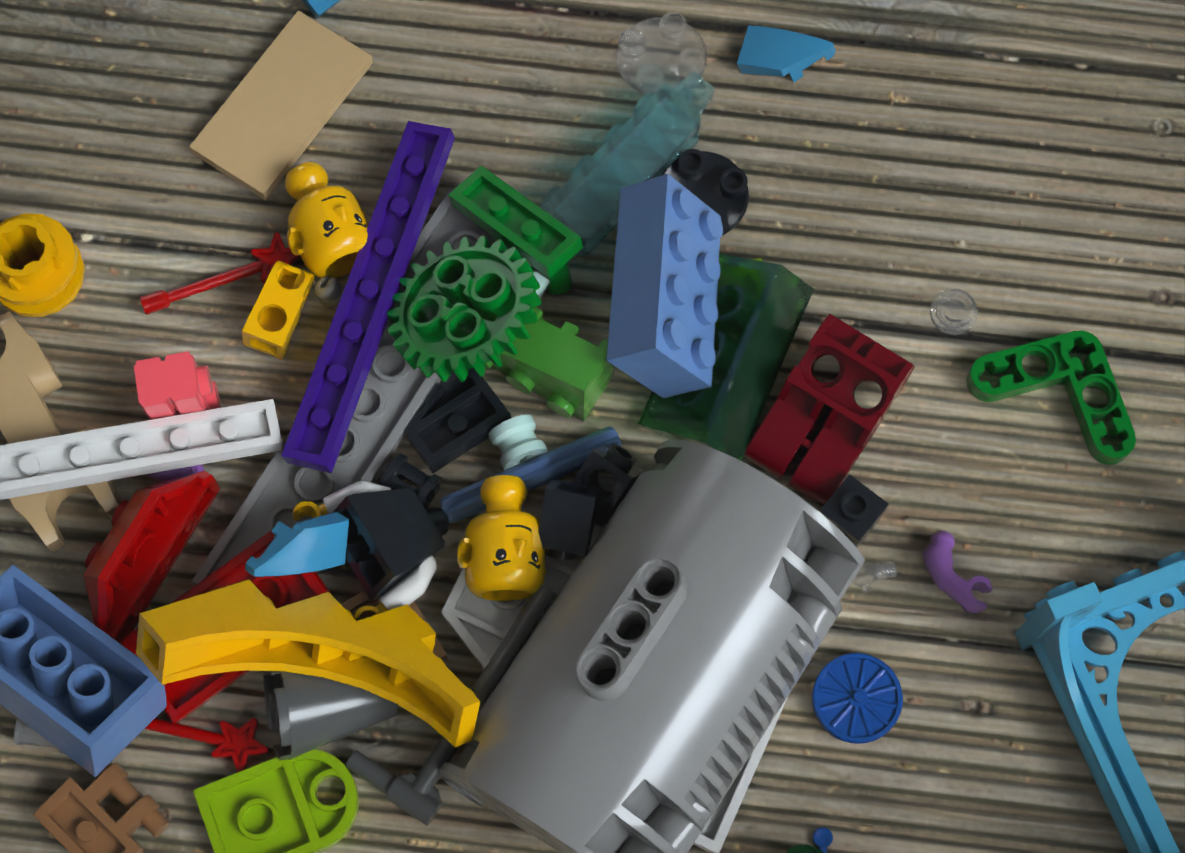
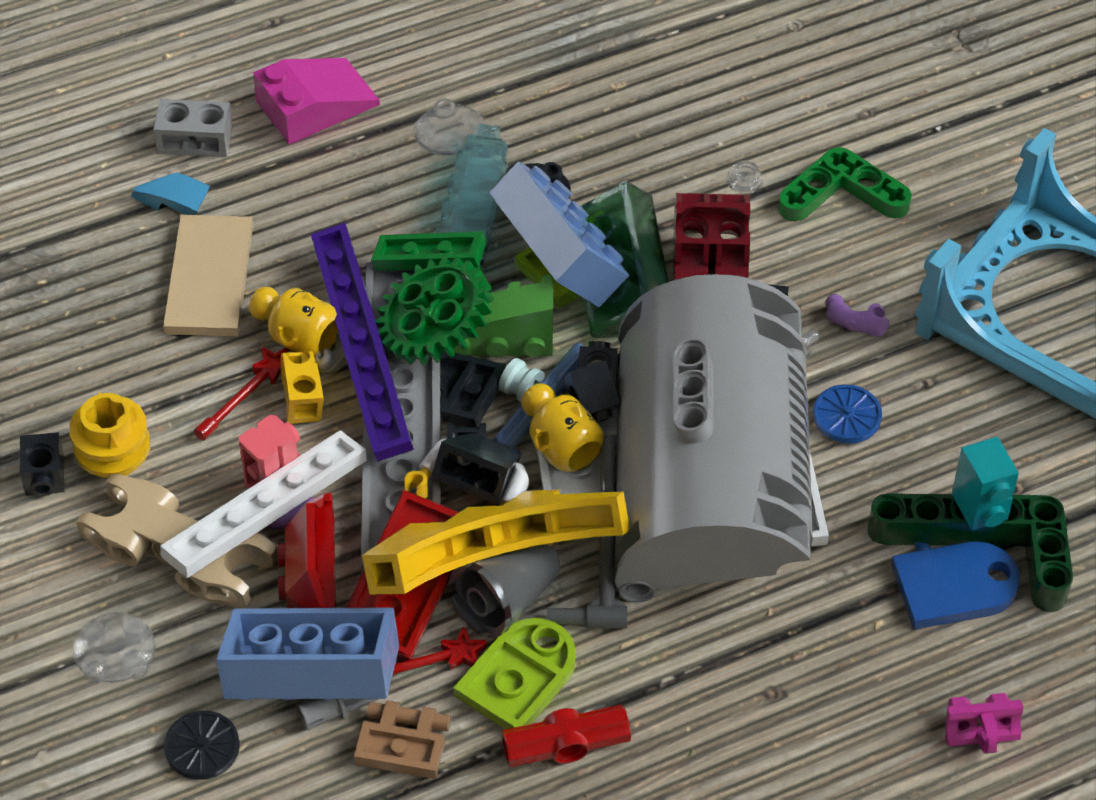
camera: 30 degrees left, 20 degrees down
(304, 548) = (432, 487): dark azure slope -> none
(780, 52) = (526, 91): dark azure slope -> none

